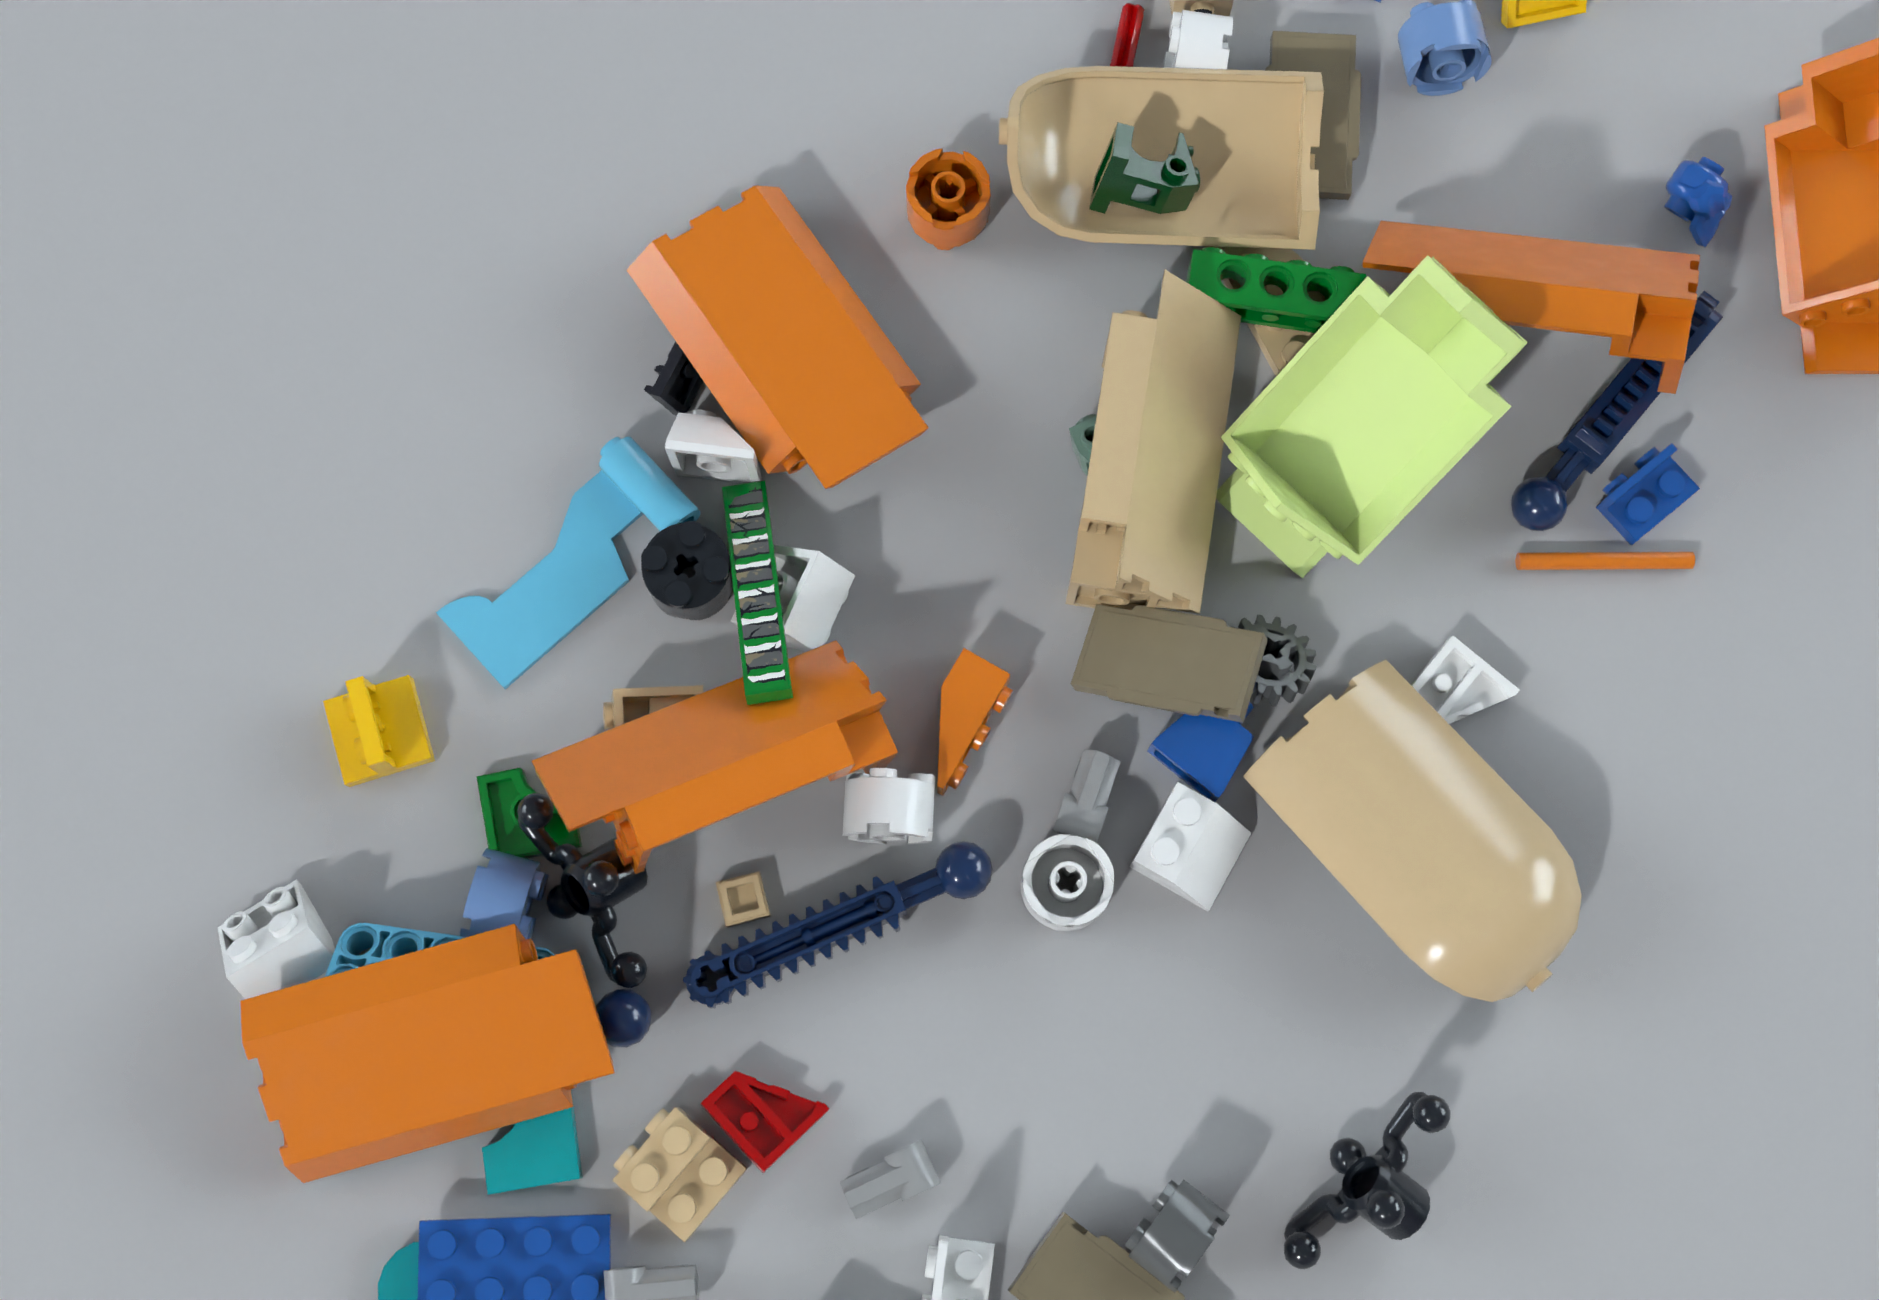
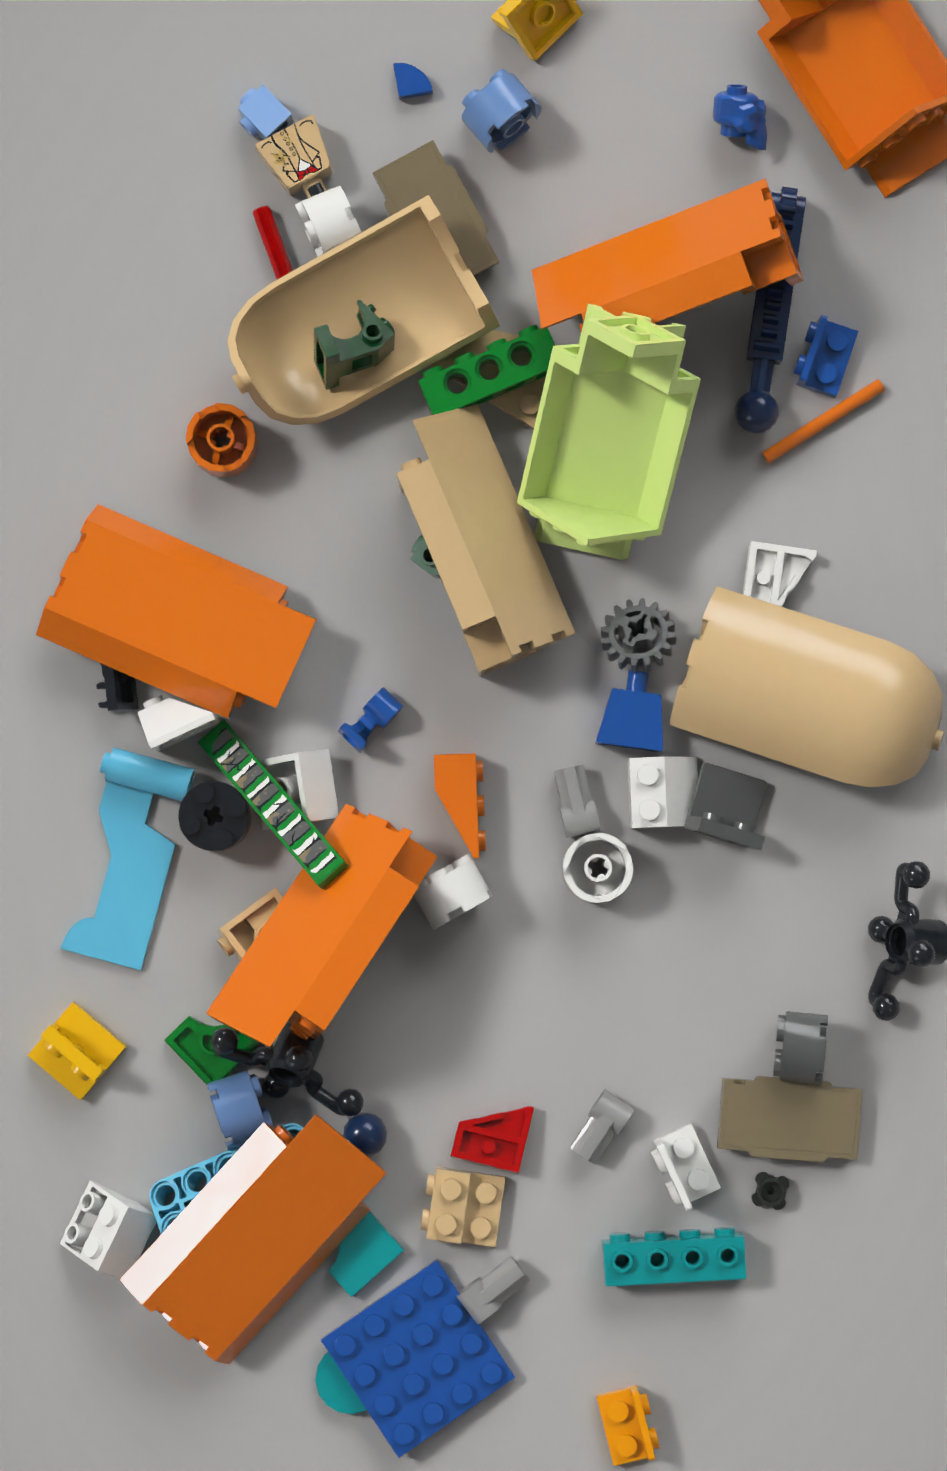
camera: 30 degrees left, 10 degrees up
(743, 899) = (392, 1009): tan tile -> none
(935, 571) = (378, 712): none -> blue leg
(960, 871) = (523, 903): dark blue gear -> none
(1170, 661) = (575, 680): dark tan piece -> none
(1253, 906) = (726, 806): none -> dark grey bracket

